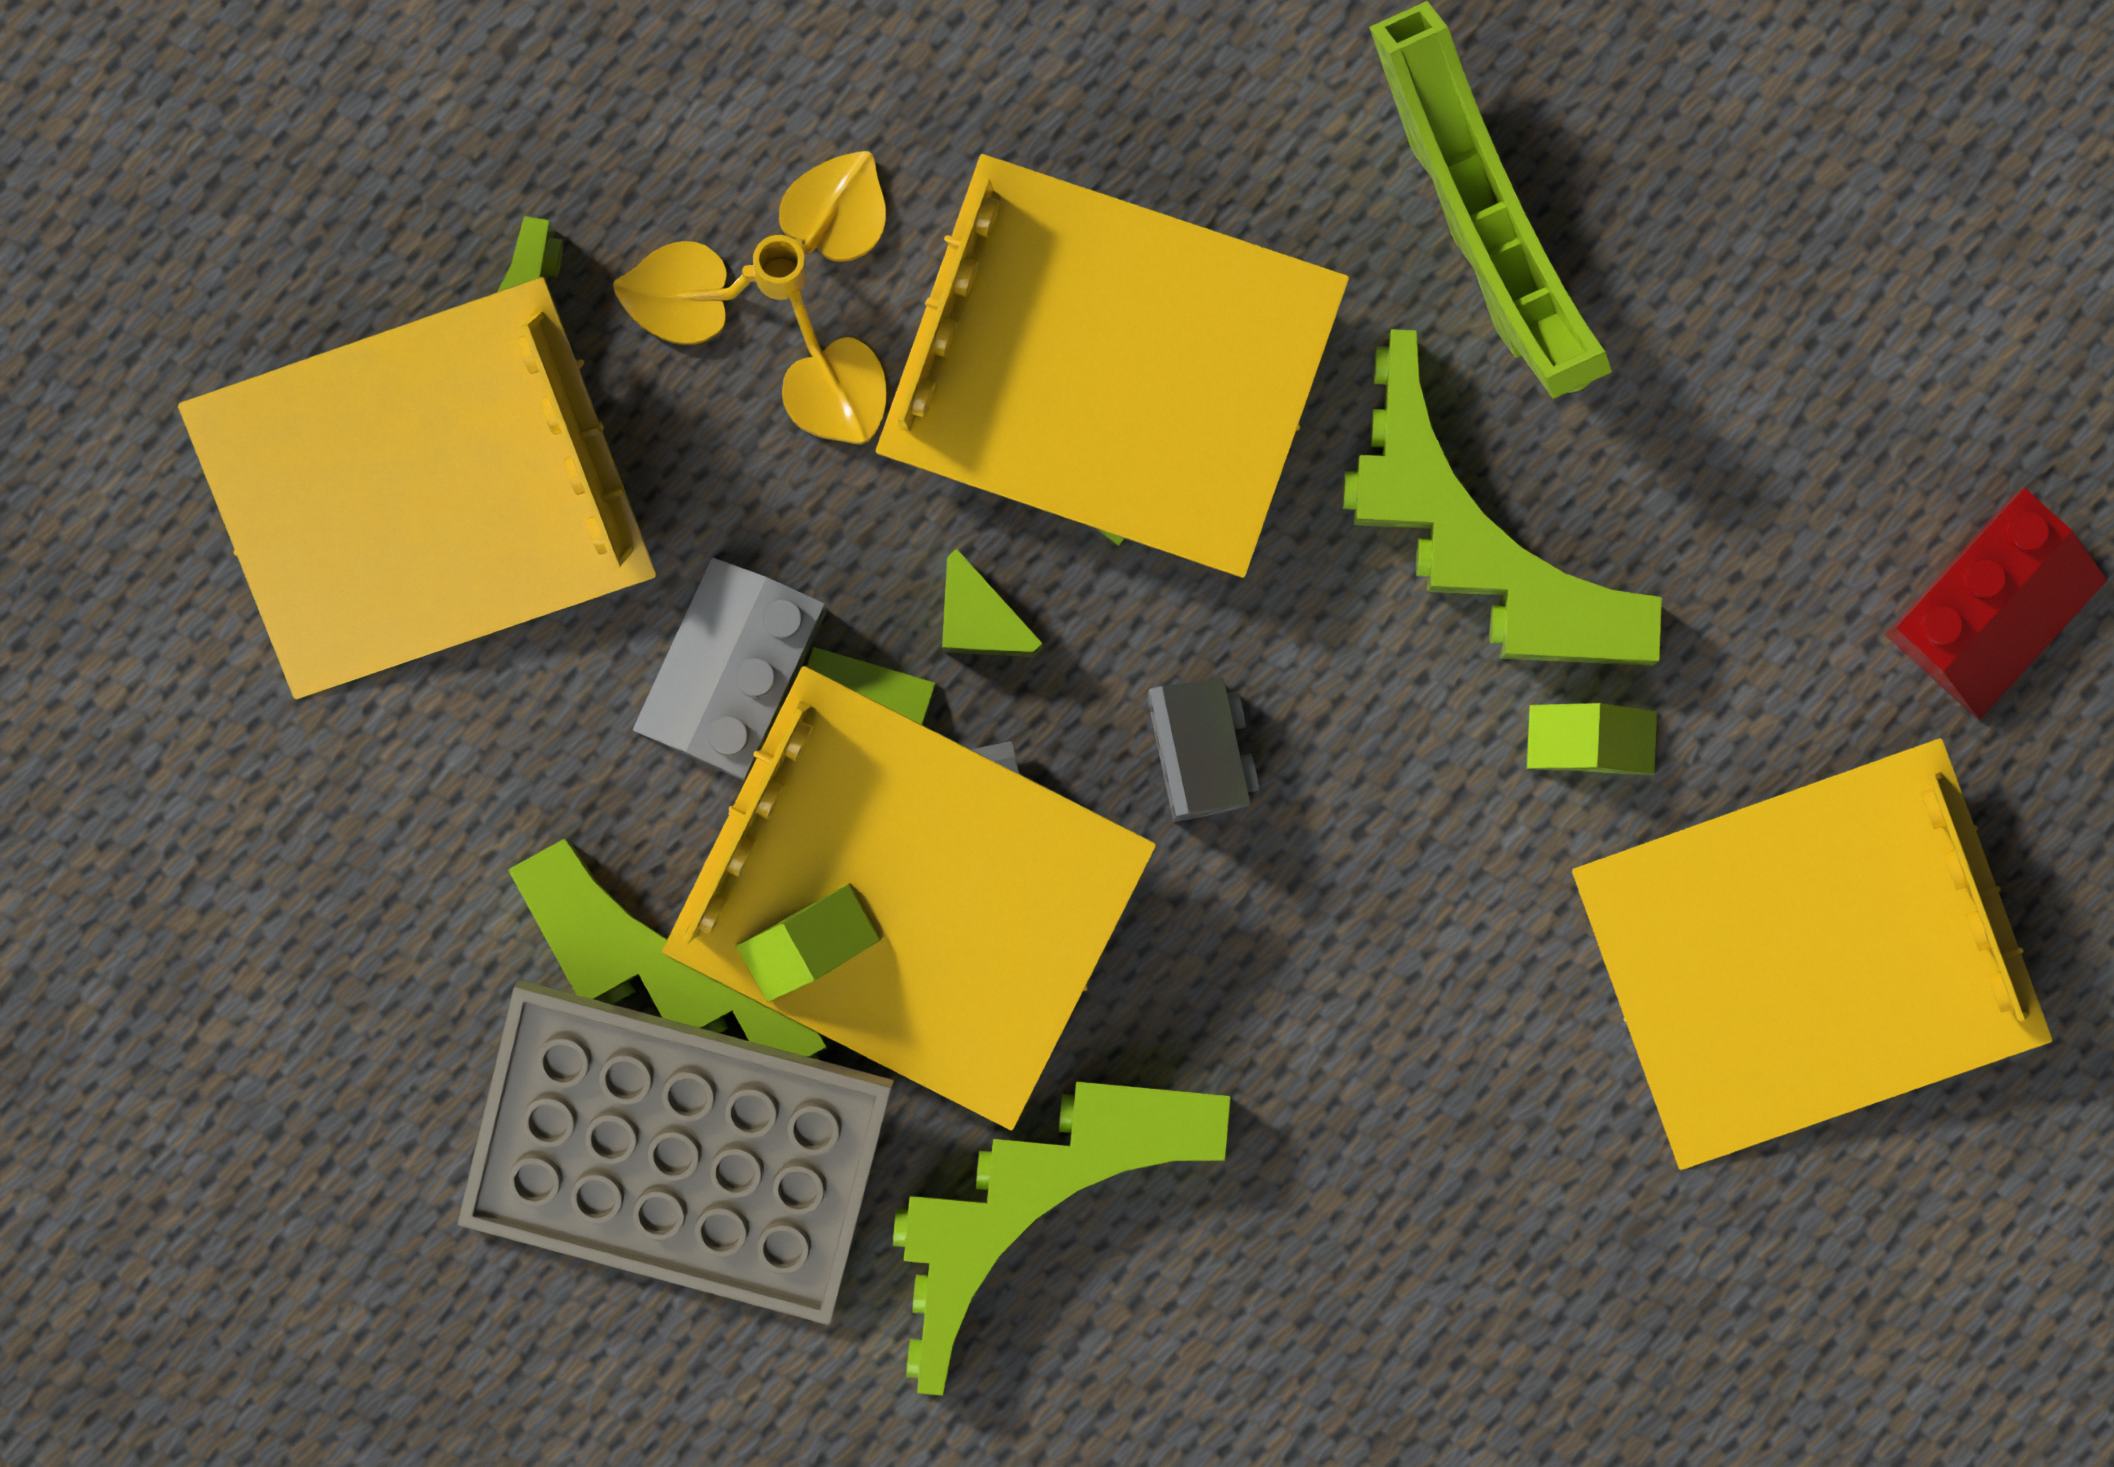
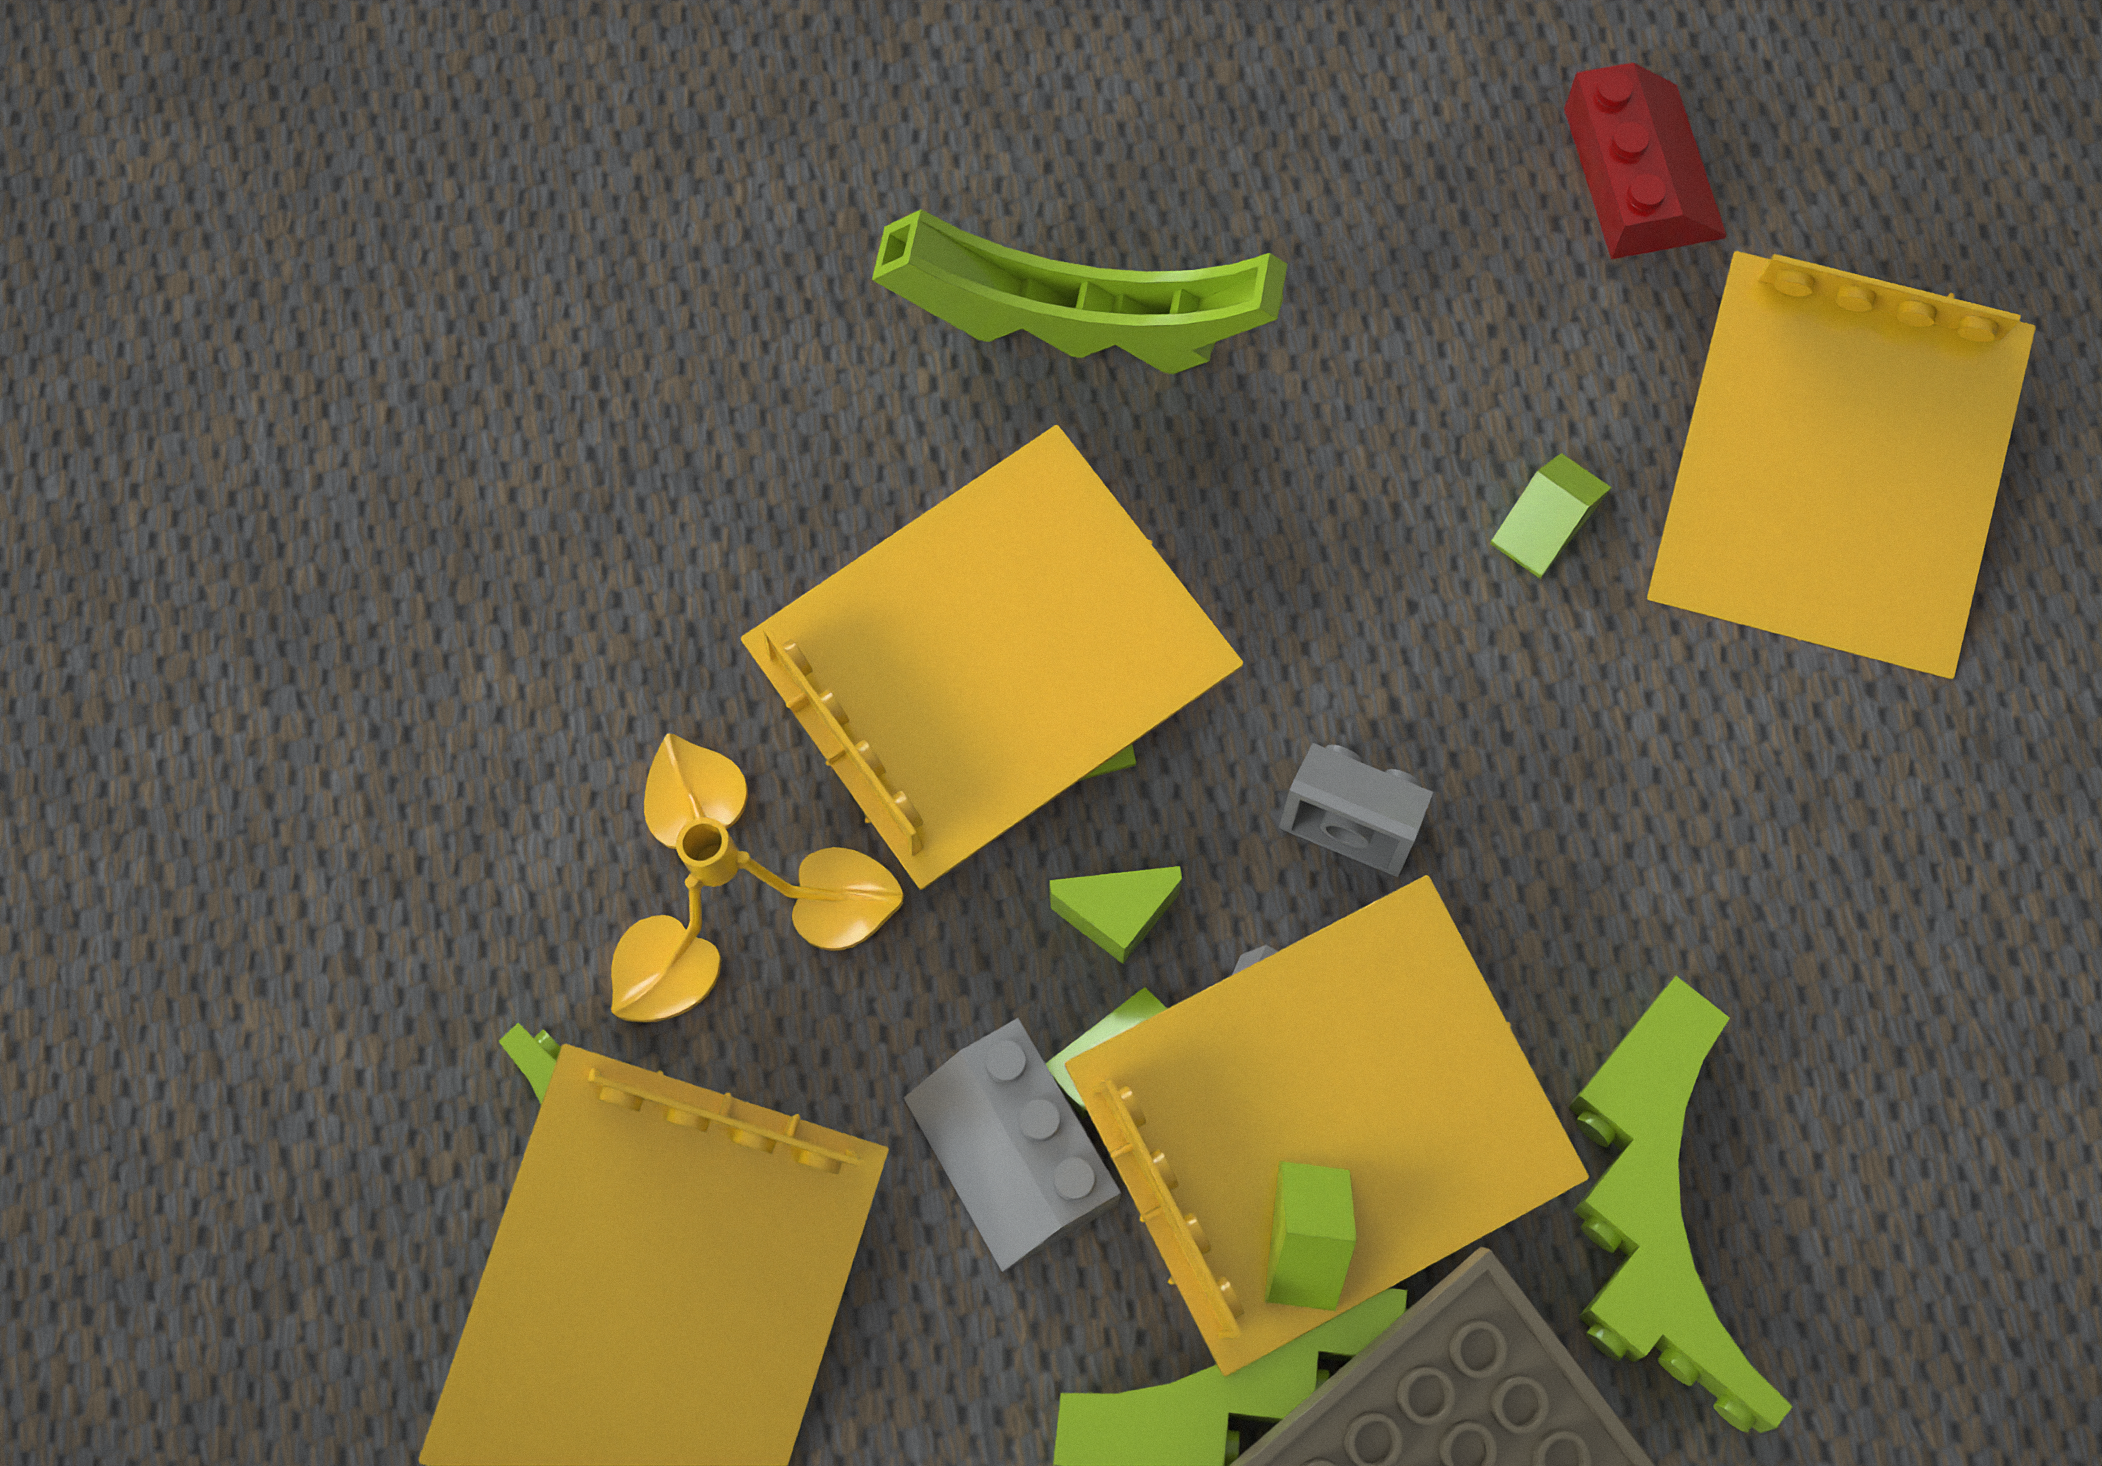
camera: 55 degrees left, 15 degrees down
(1413, 486) = (1331, 499): lime arch -> none

